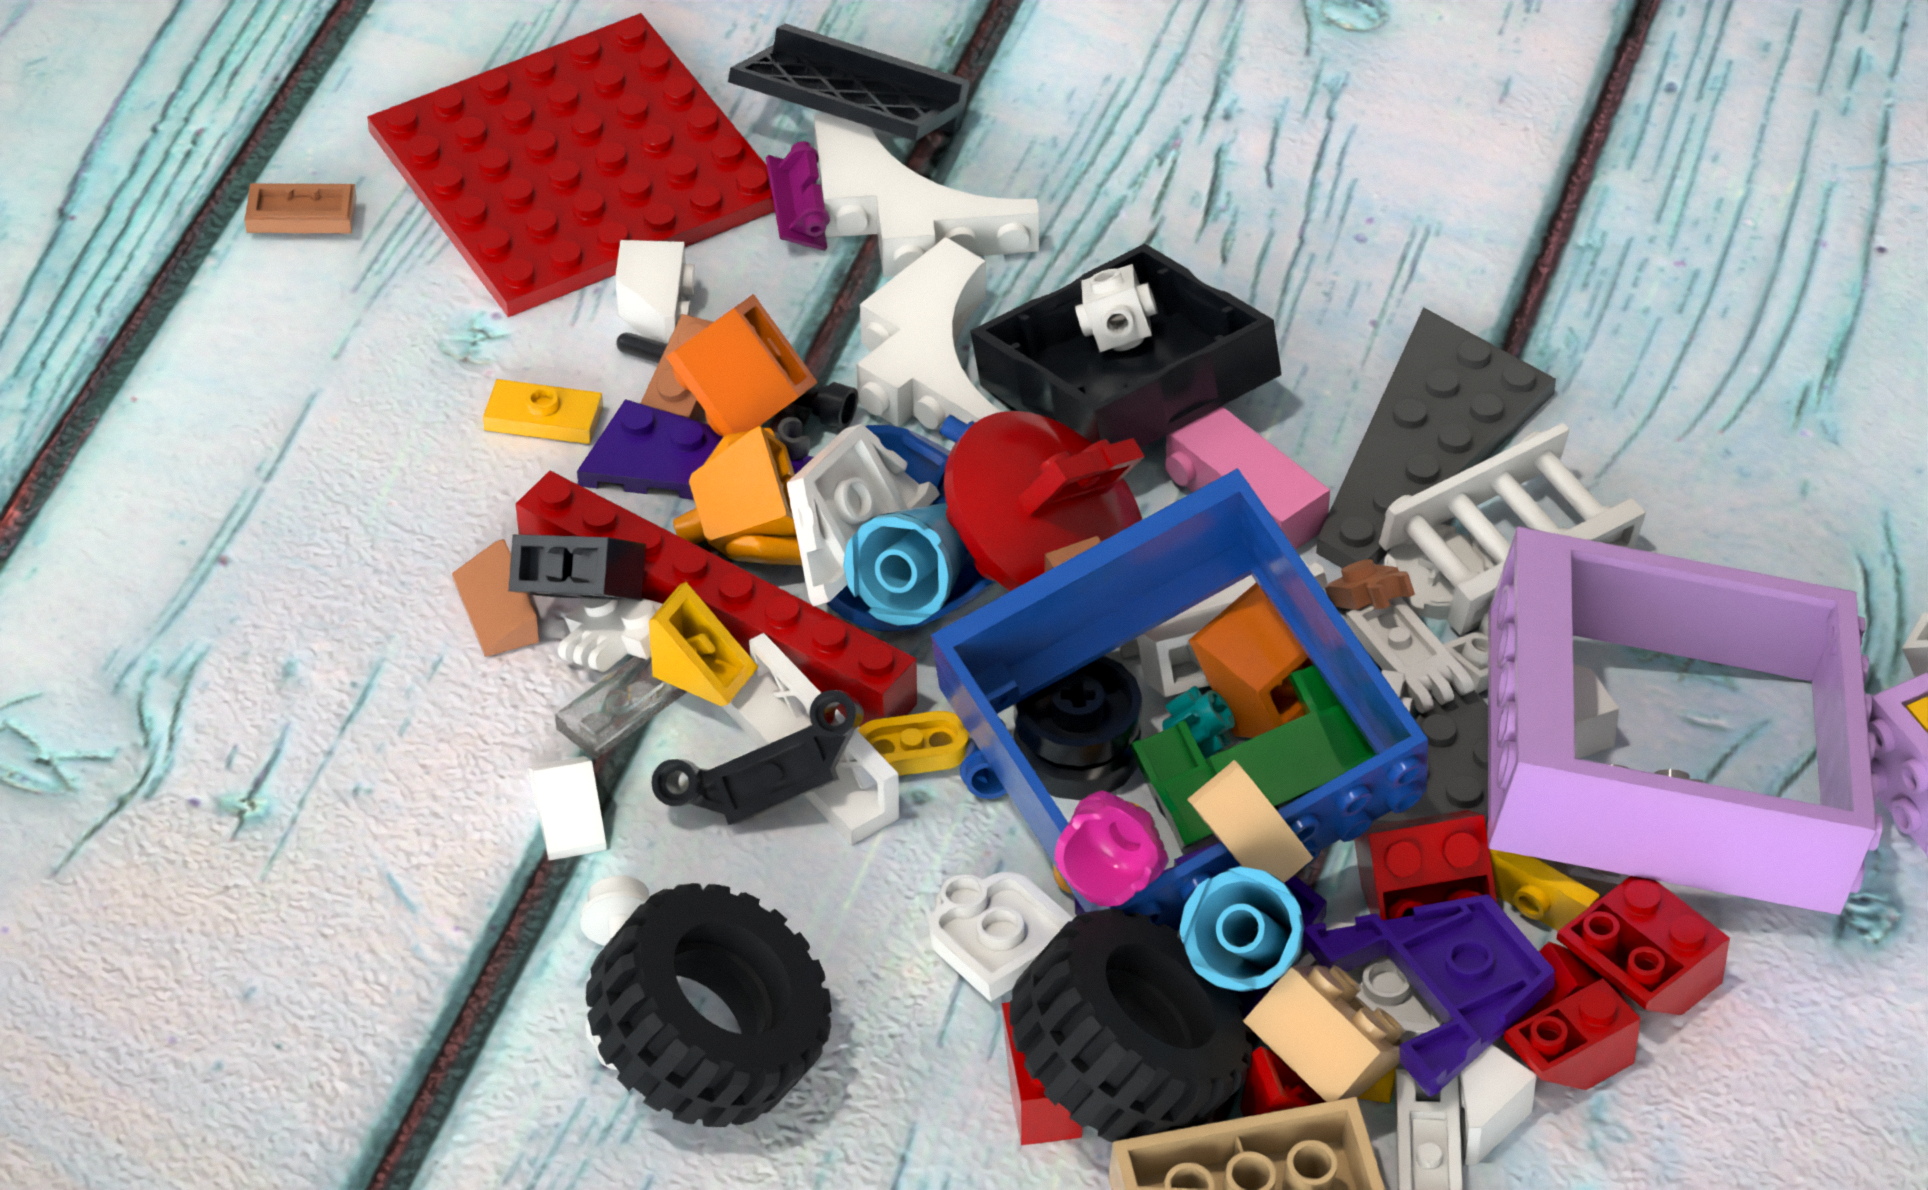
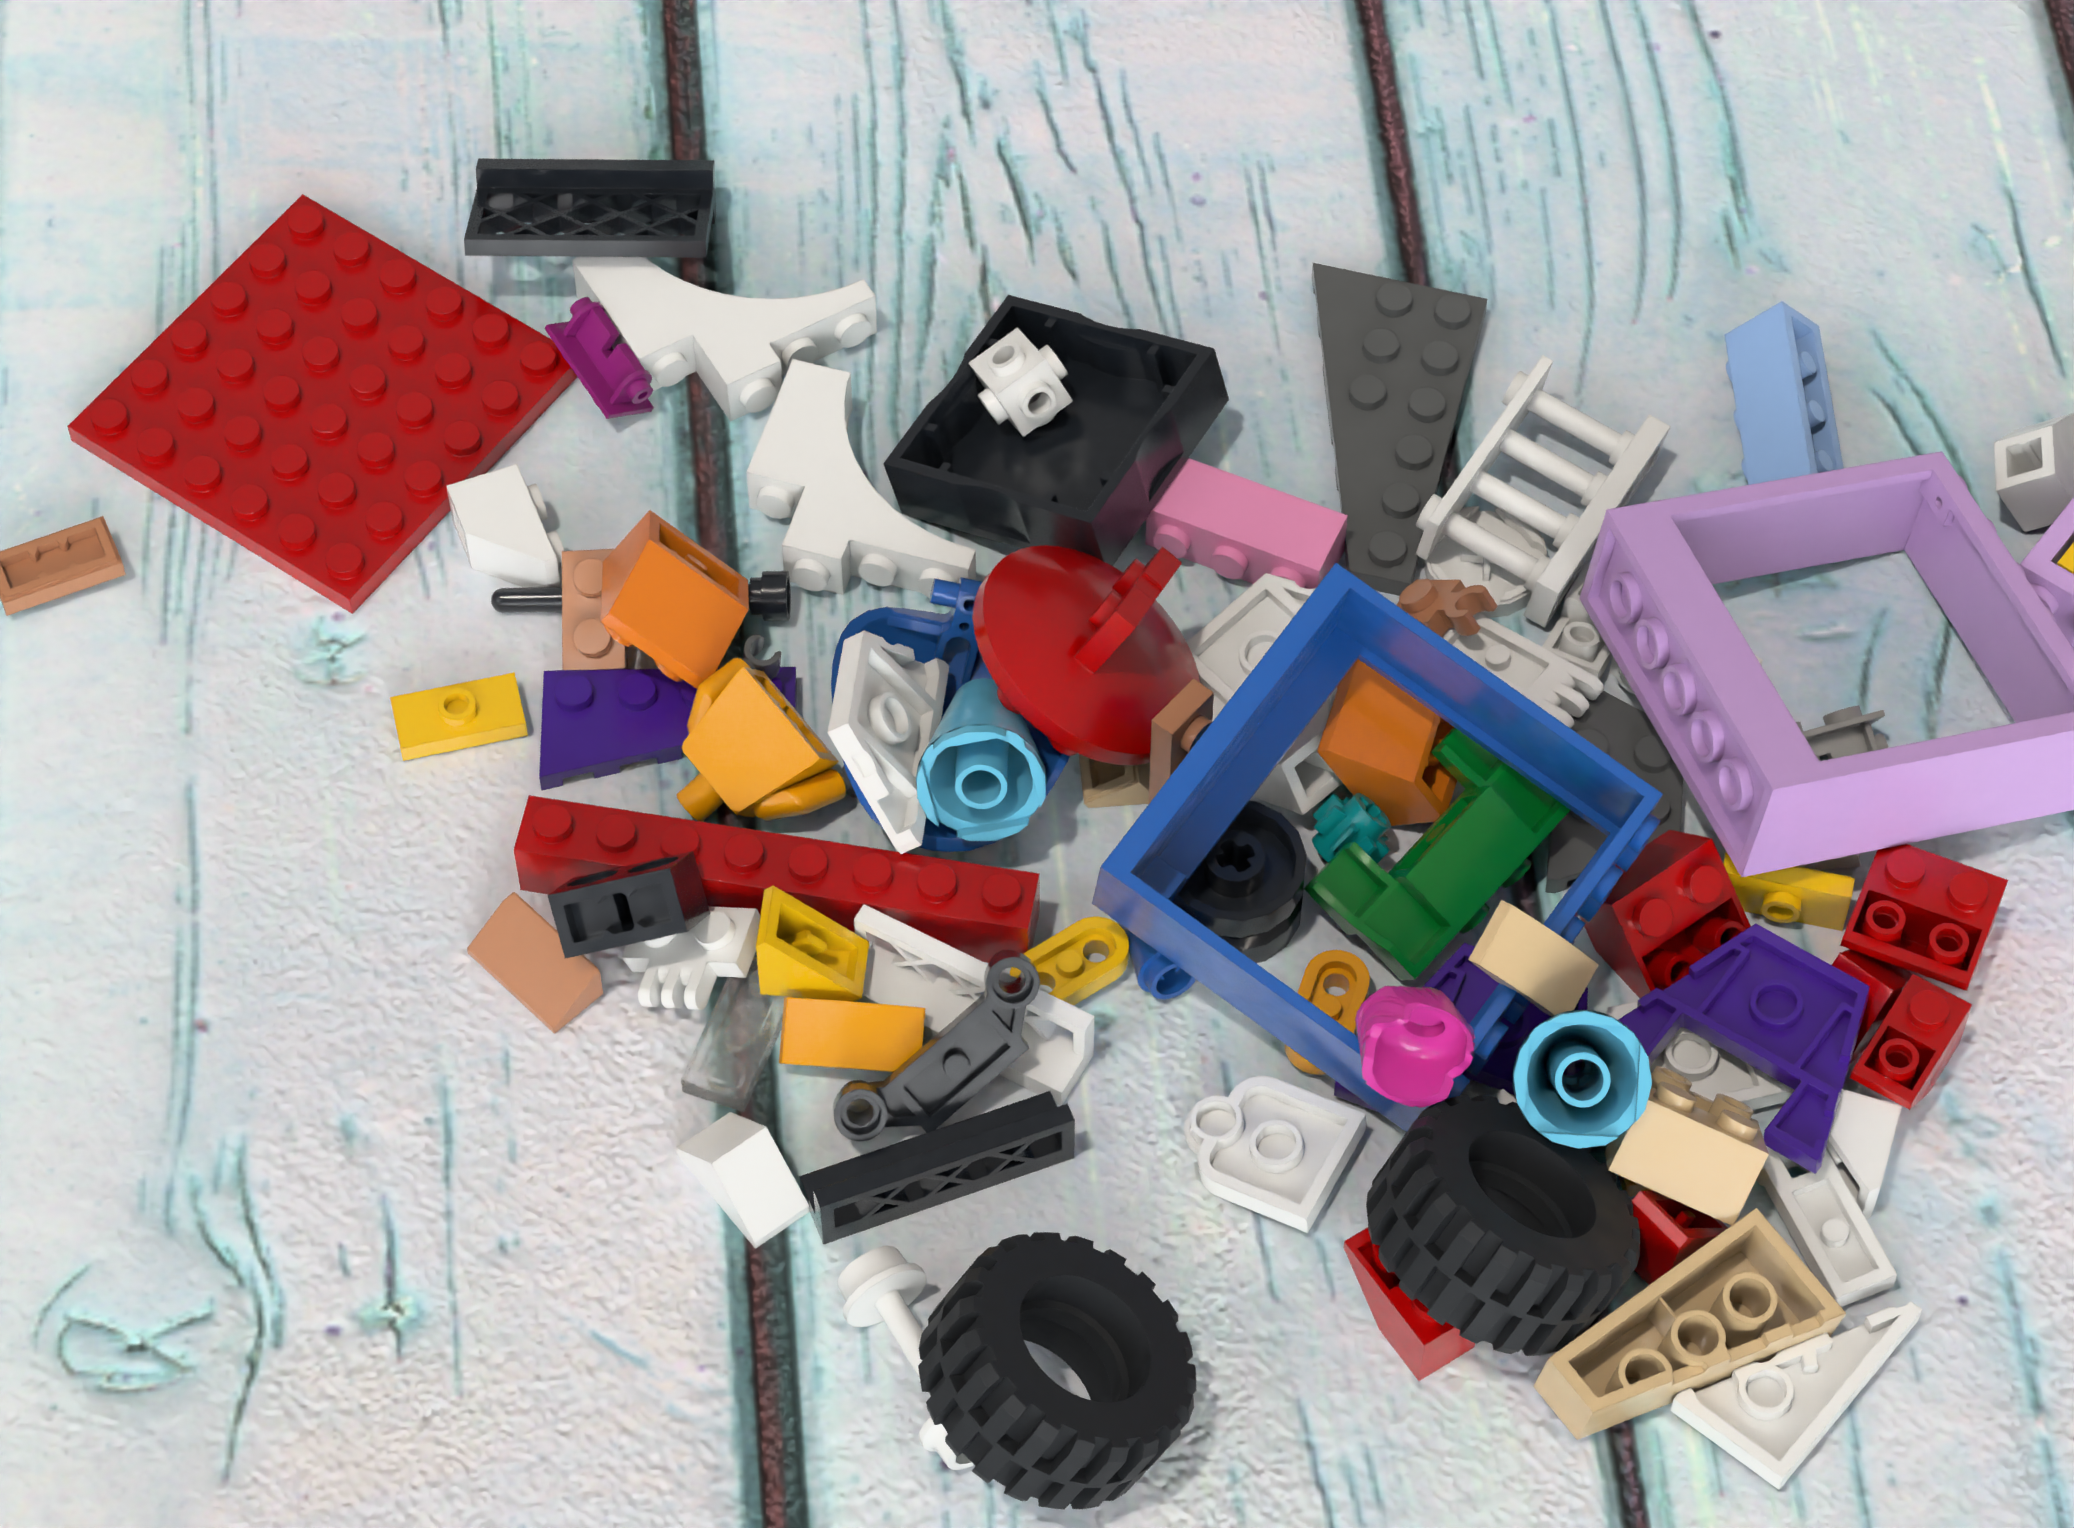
camera: 25 degrees left, 10 degrees up
(703, 726) = (849, 1034): none -> light orange slope
(721, 851) = (939, 1166): none -> black fence
(1765, 513) = (1782, 396): none -> light blue brick

